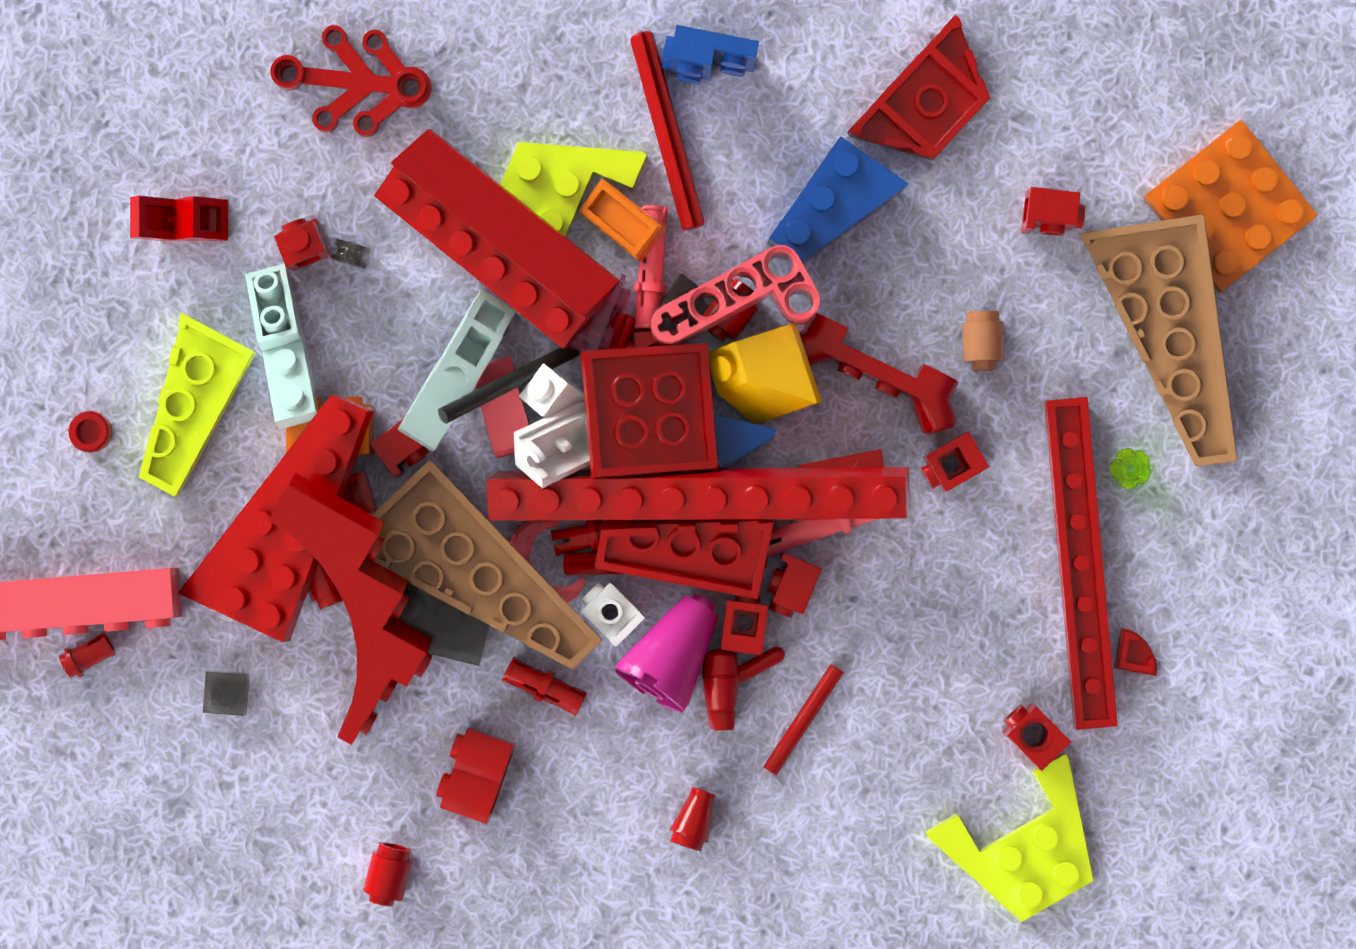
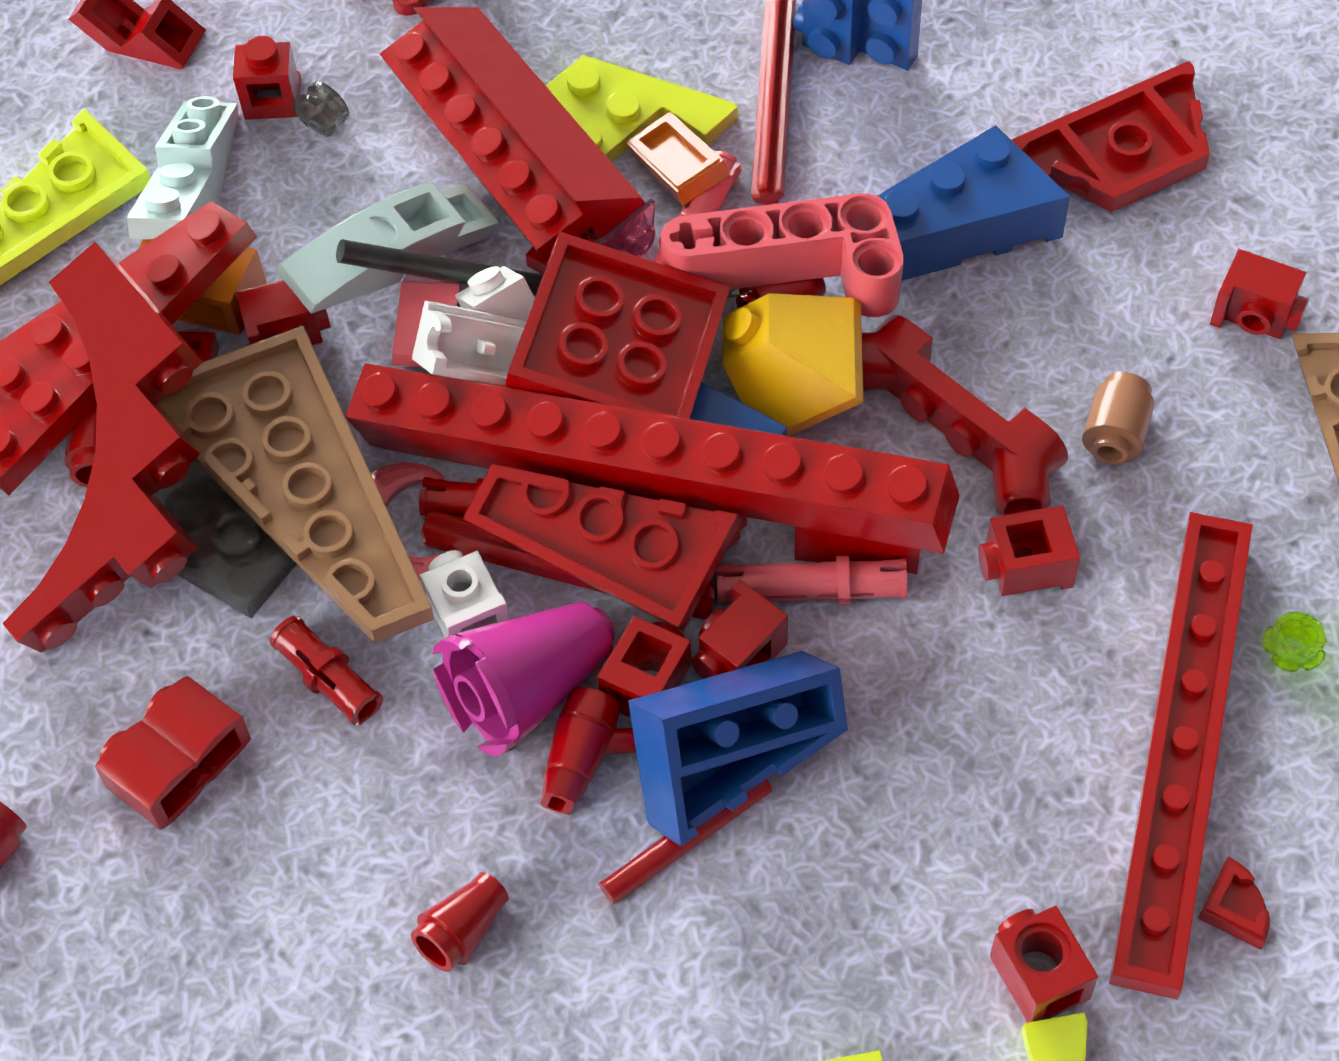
camera: 20 degrees right, 30 degrees down
(814, 655) = (728, 734): none -> blue wedge

